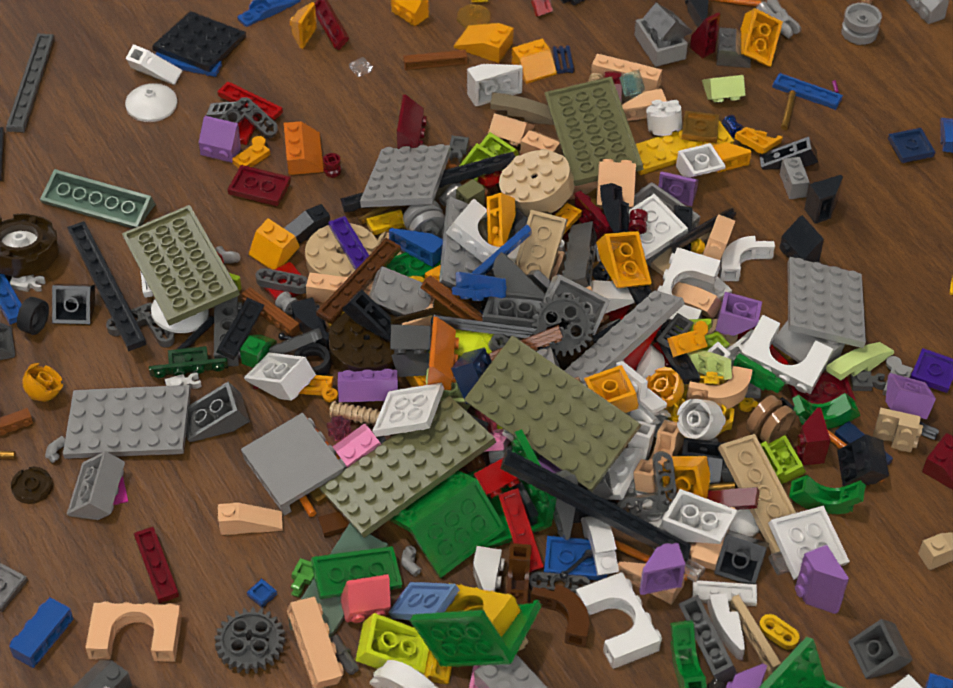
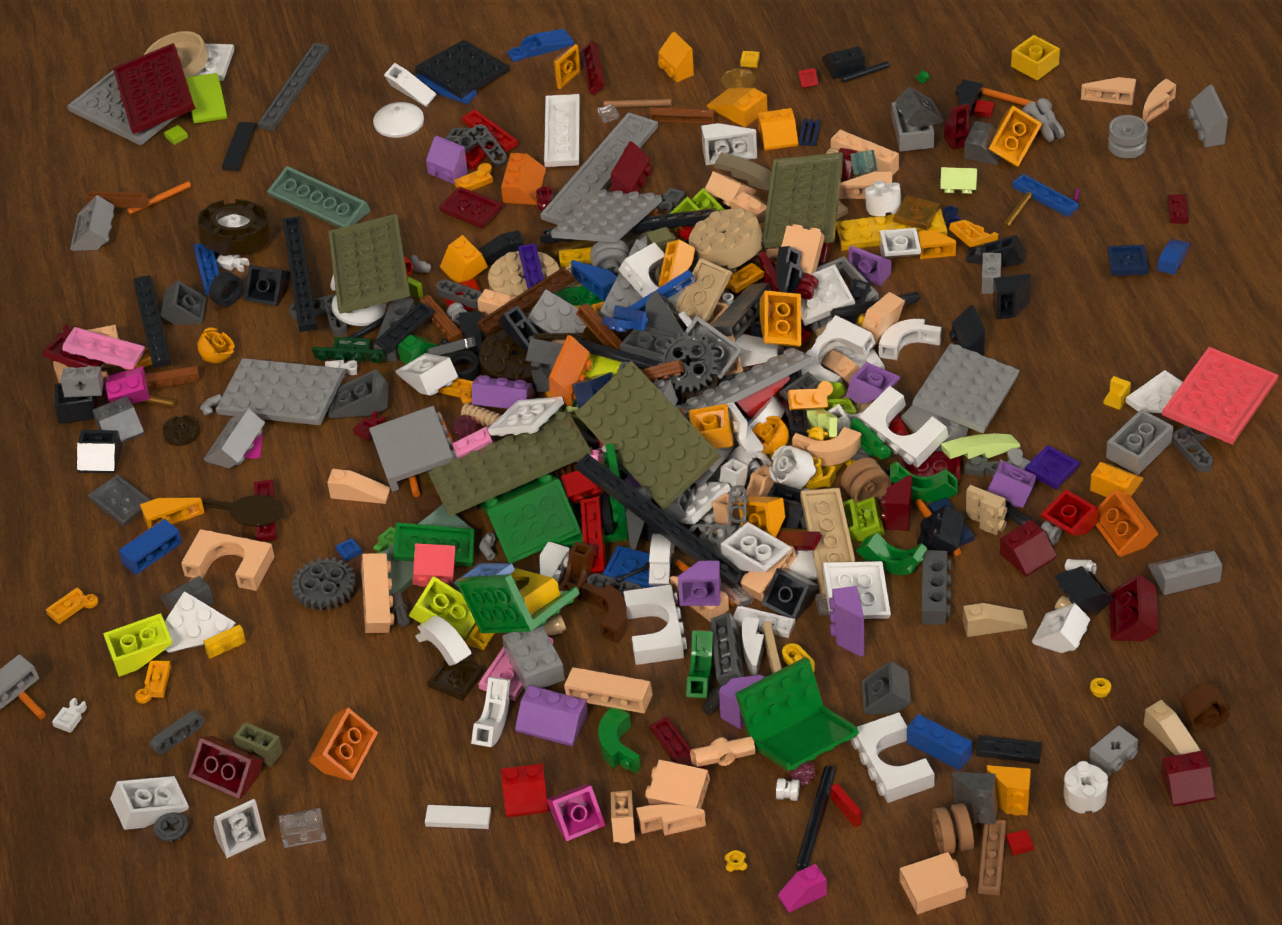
camera: 20 degrees right, 5 degrees down
(53, 583) = (171, 509): none -> light orange slope
(139, 568) = (251, 510): none -> dark brown piece
(234, 445) = (362, 429): none -> dark red plate
(322, 91) = (562, 130): none -> white plate
(374, 127) = (596, 171): none -> light grey plate
(389, 52) = (639, 103): none -> medium nougat bar
(715, 9) = (984, 108): none -> red tile
(878, 532) = (935, 587): none -> dark grey brick
(932, 87) = (1177, 209): none -> dark red plate

